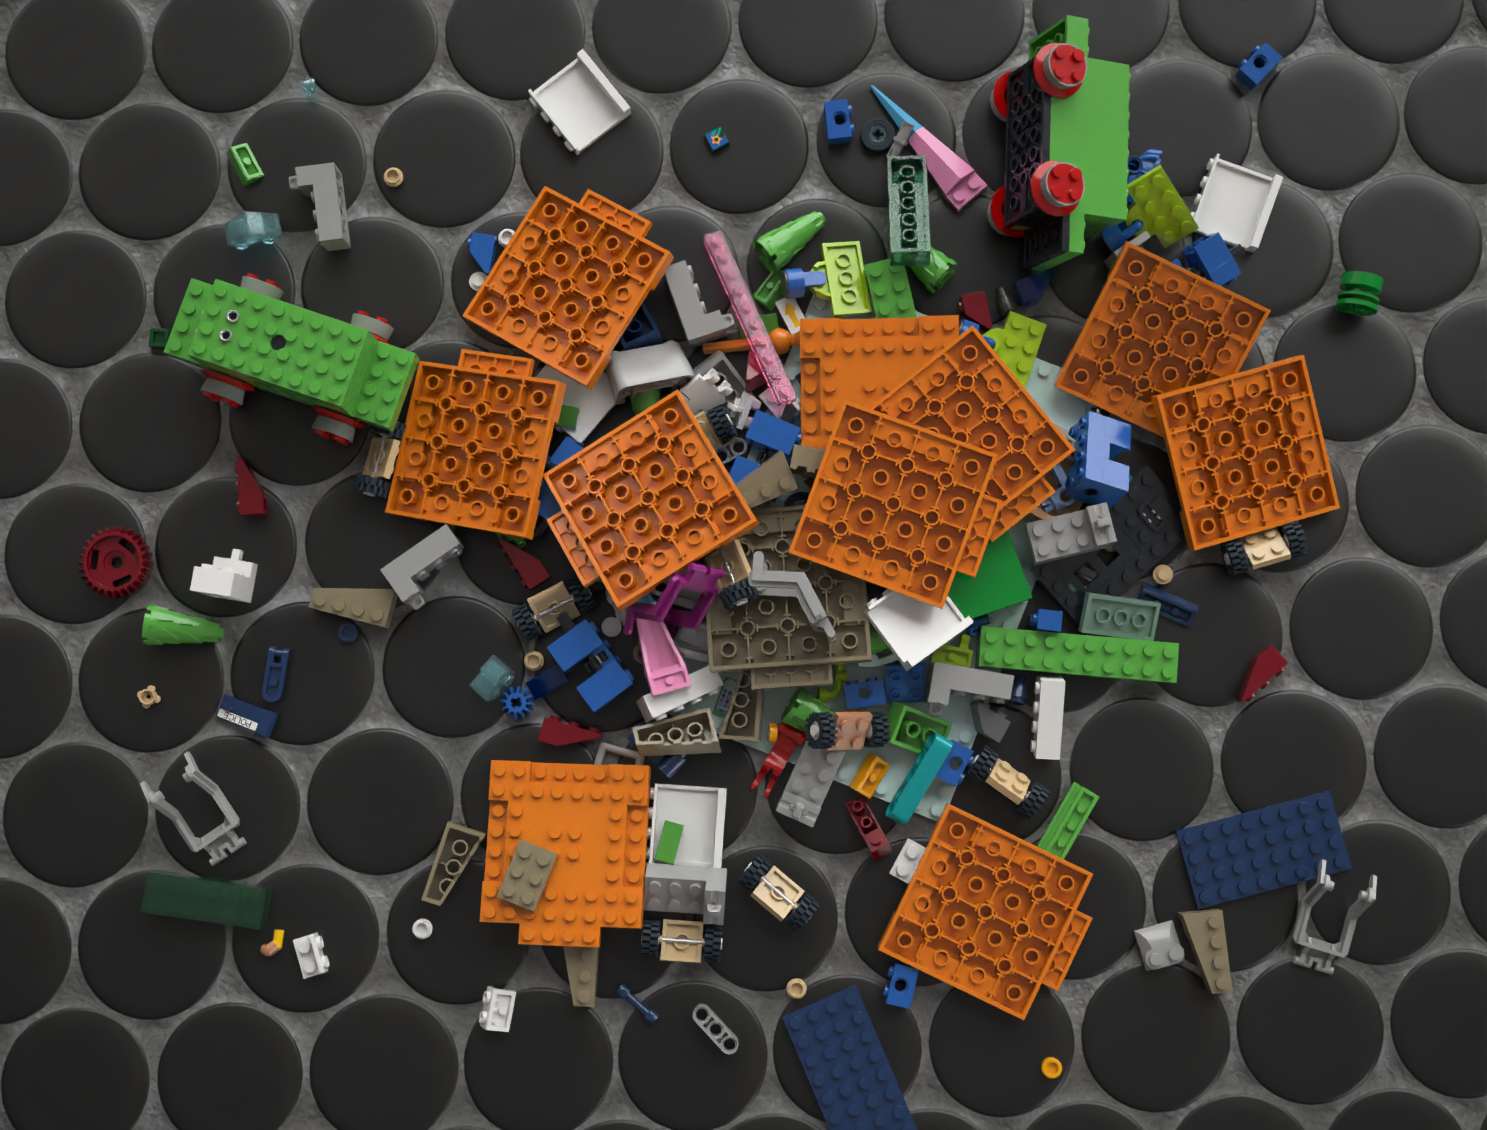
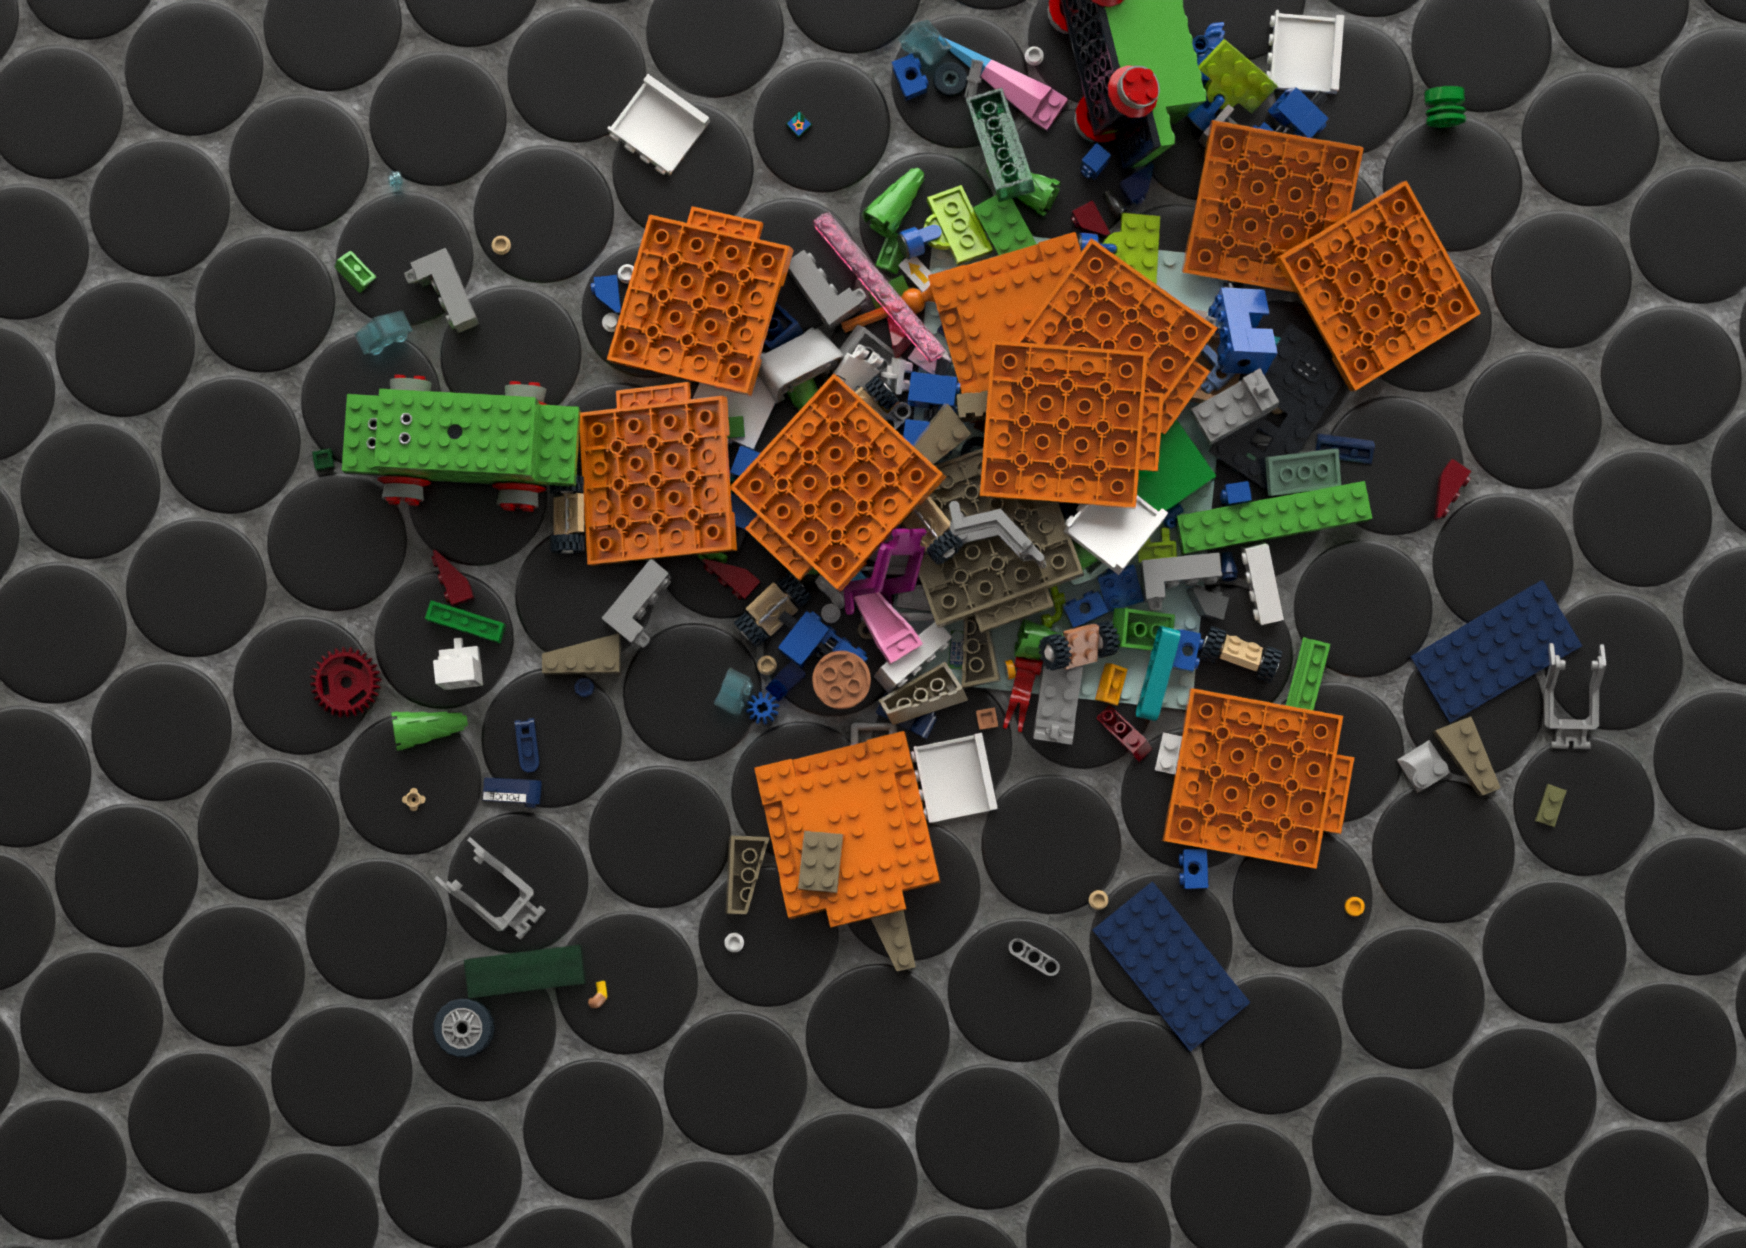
camera: 15 degrees left, 0 degrees up
(123, 954) = (448, 1031): none -> wheel
(249, 535) = (465, 621): none -> green brick
(311, 955) = (636, 996): white bracket -> none
(497, 1009) = (825, 996): white bracket -> none
(560, 733) = (812, 725): dark red slope -> none
(600, 698) = (841, 679): none -> nougat tile
(650, 1015) = (969, 962): dark blue bar -> none
(669, 842) = (942, 797): bright green slope -> none
(681, 941) = (980, 884): plate -> none
(686, 890) = (971, 836): light grey hinge -> none
(736, 775) = (987, 718): none -> nougat plate
(778, 893) = (1056, 815): plate -> none
(864, 90) = (926, 40): none -> clear light blue brick
(965, 135) = (1034, 56): none -> white plate
(996, 253) = (1094, 162): none -> blue brick
(1162, 574) = (1333, 421): tan plate -> none
(1264, 548) = (1420, 370): plate -> none
(1276, 1021) = (1550, 805): none -> olive plate

